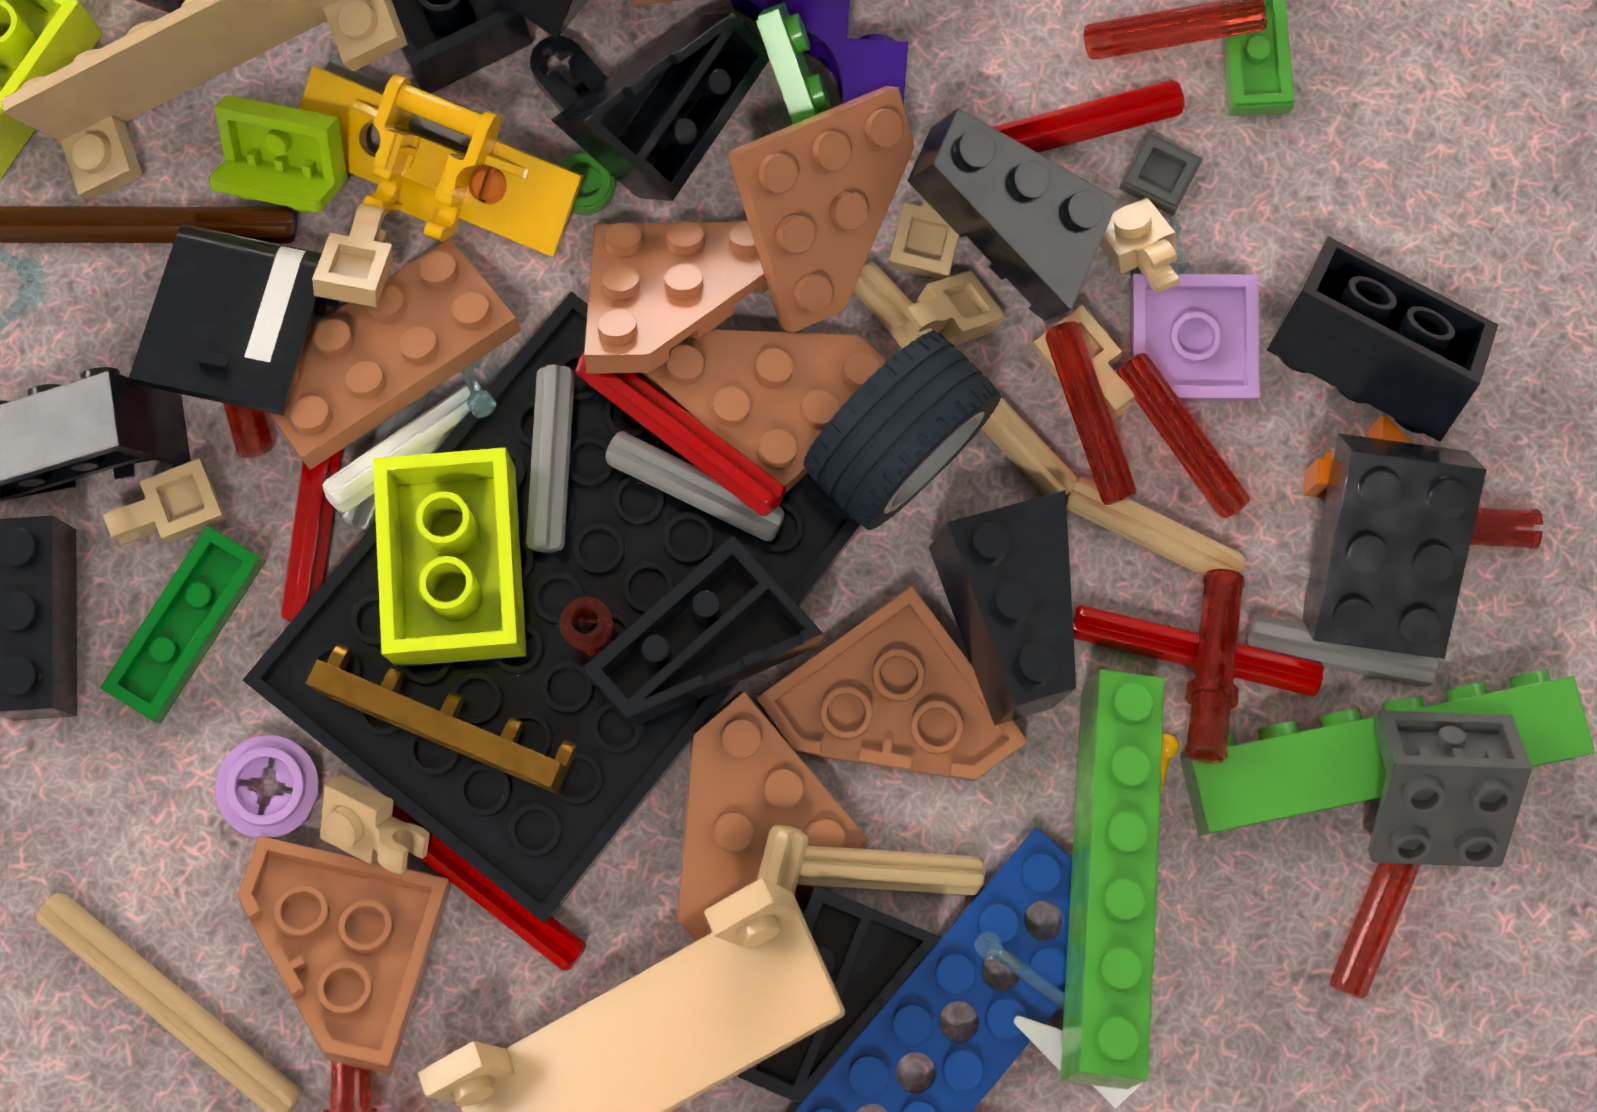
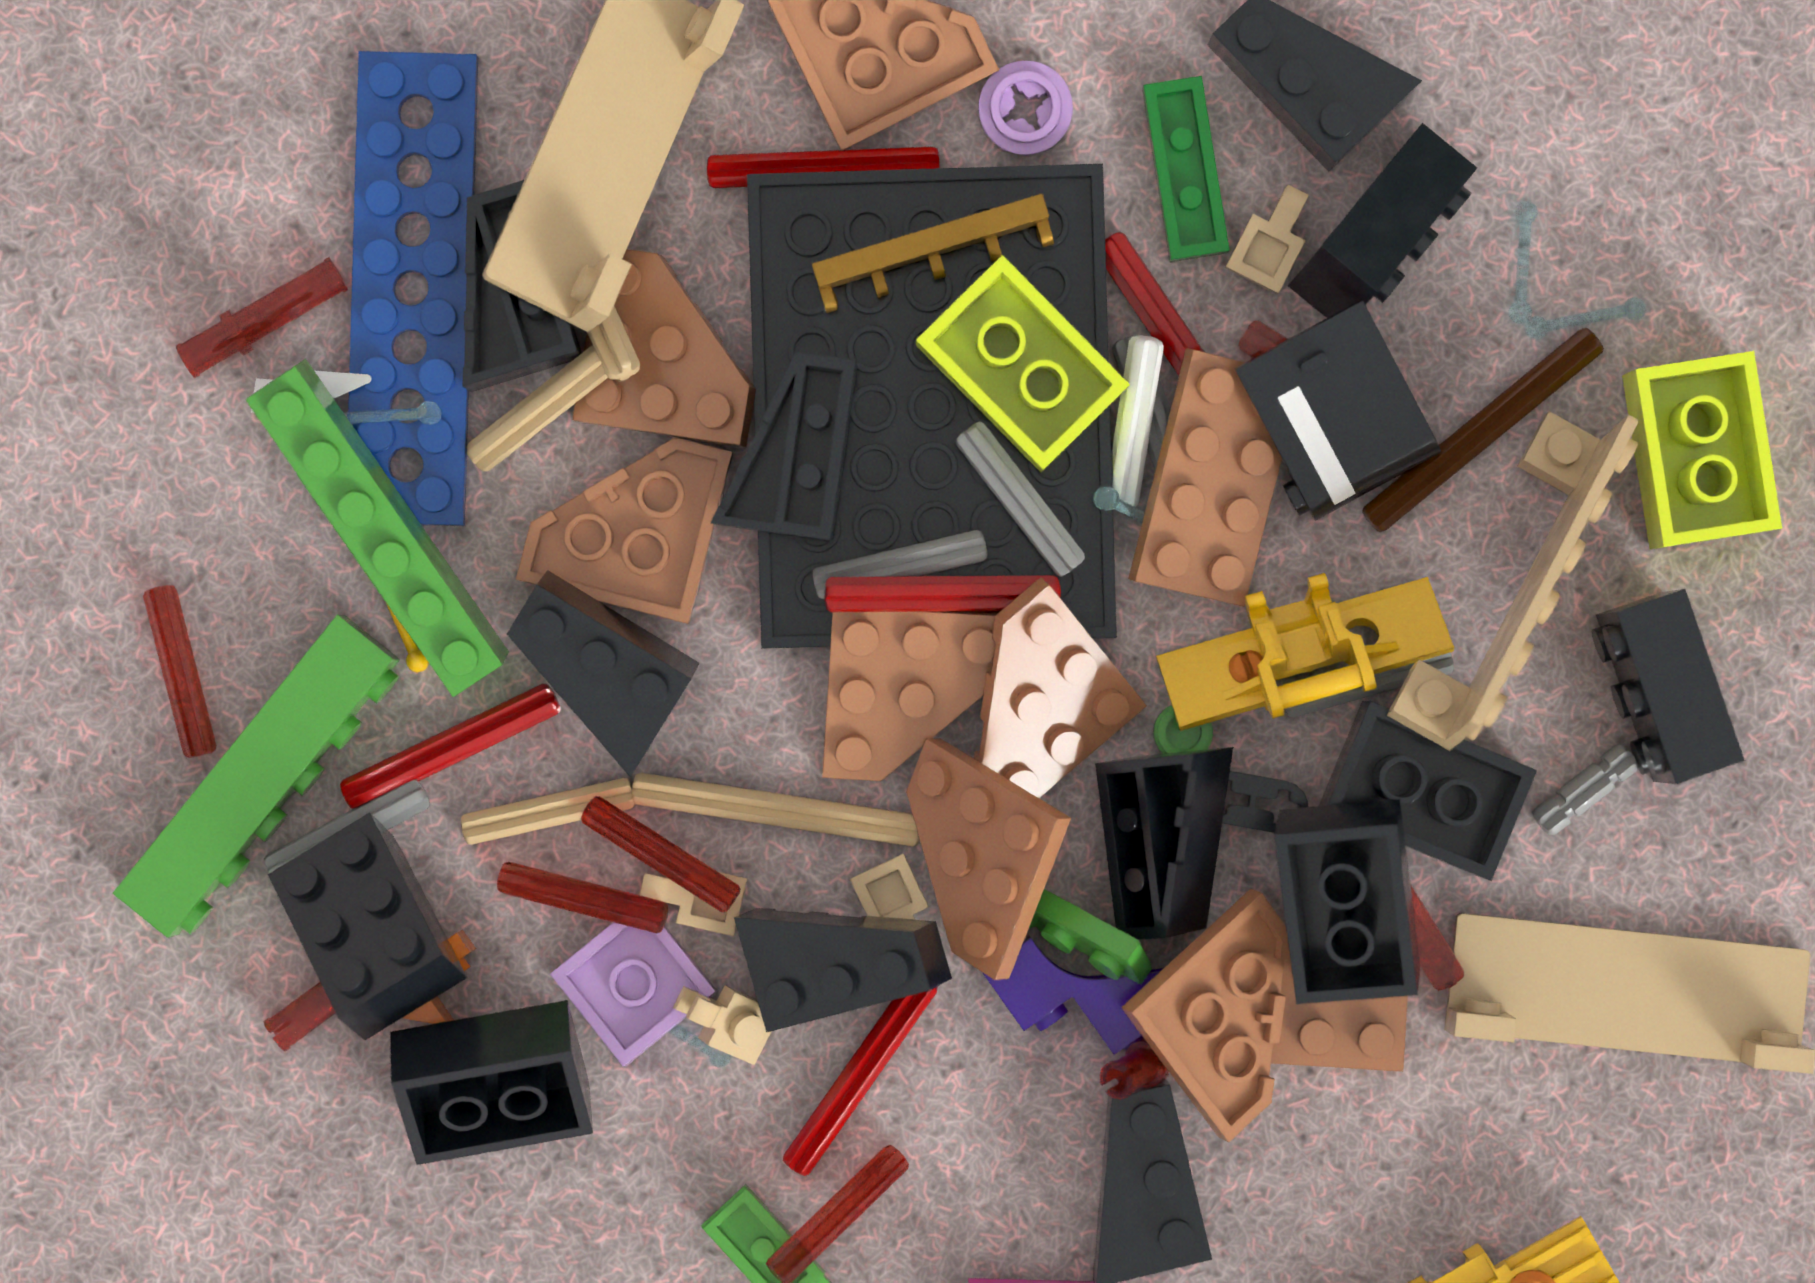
camera: 140 degrees right, 10 degrees up
(278, 154) = (1420, 558): lime bracket -> none
(357, 264) = (1283, 524): tan plate -> none
(363, 825) = (930, 136): tan plate -> none
(588, 610) = (882, 381): clear red pin -> none
(901, 429) = (779, 721): black wheel -> none
(954, 307) = (824, 855): tan plate -> none
(1160, 173) = (760, 1094): dark grey tile -> none
(1212, 689) = (414, 719): clear red pin -> none
(1448, 788) = (197, 781): dark grey bracket -> none

